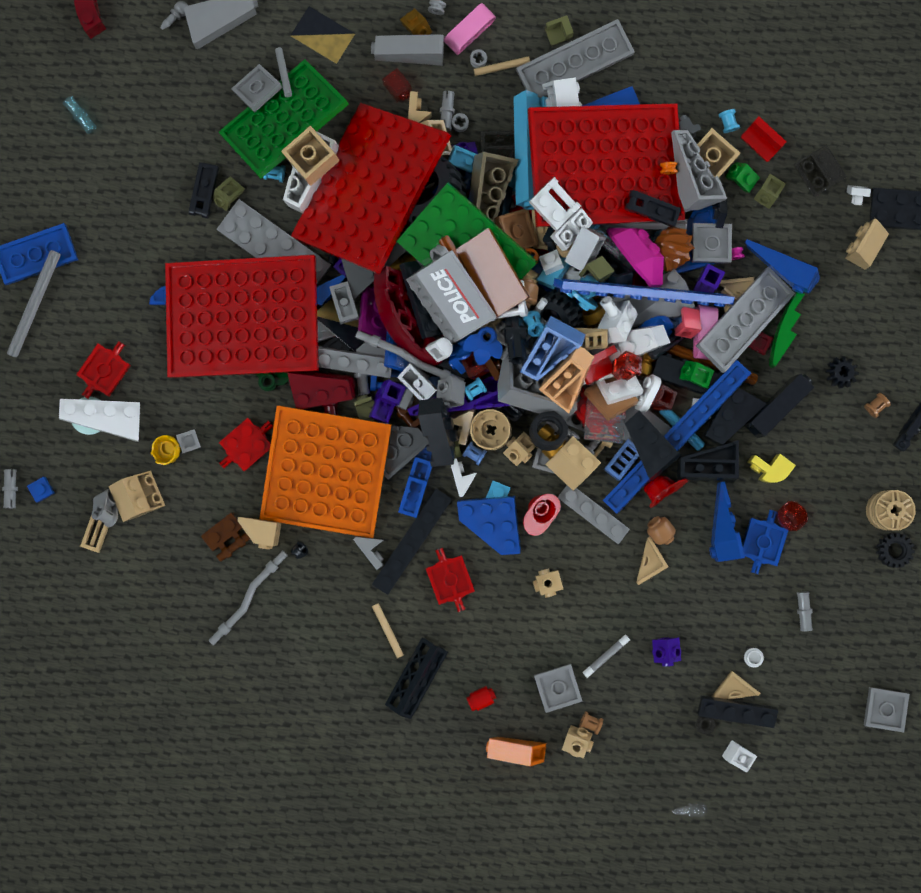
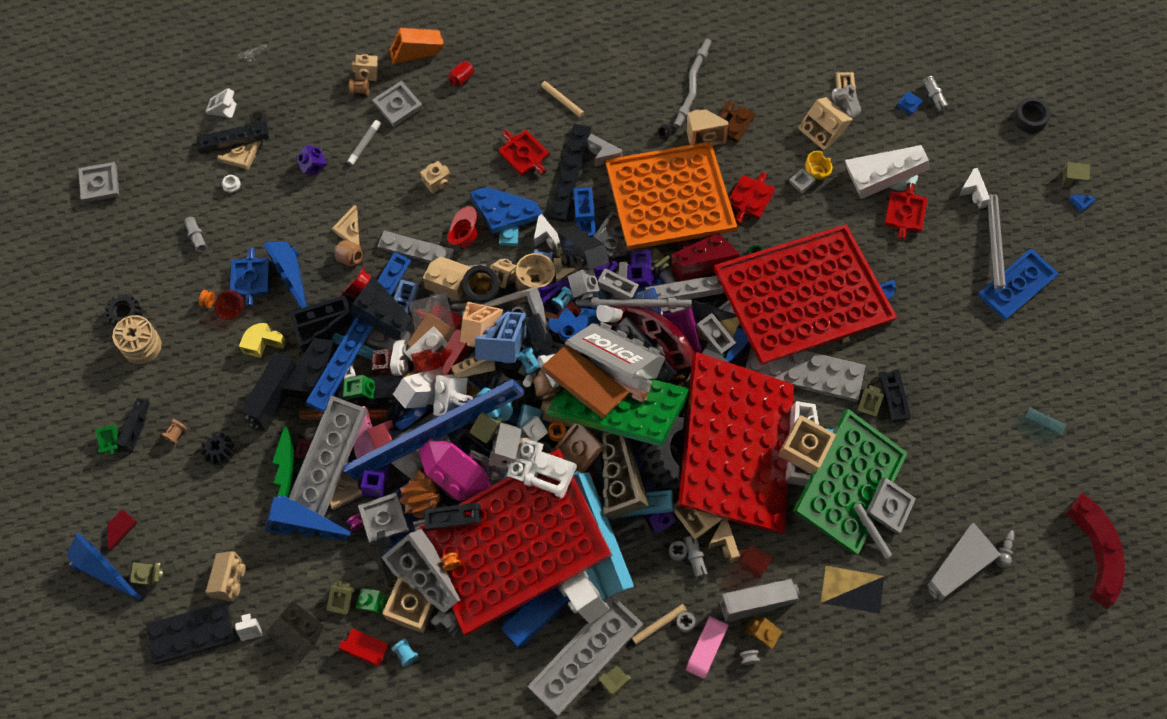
camera: 165 degrees right, 20 degrees down
(23, 372) = (976, 187): none -> white slope
(419, 680) = (519, 68): black fence -> none
(811, 533) = (206, 298): none -> orange bush

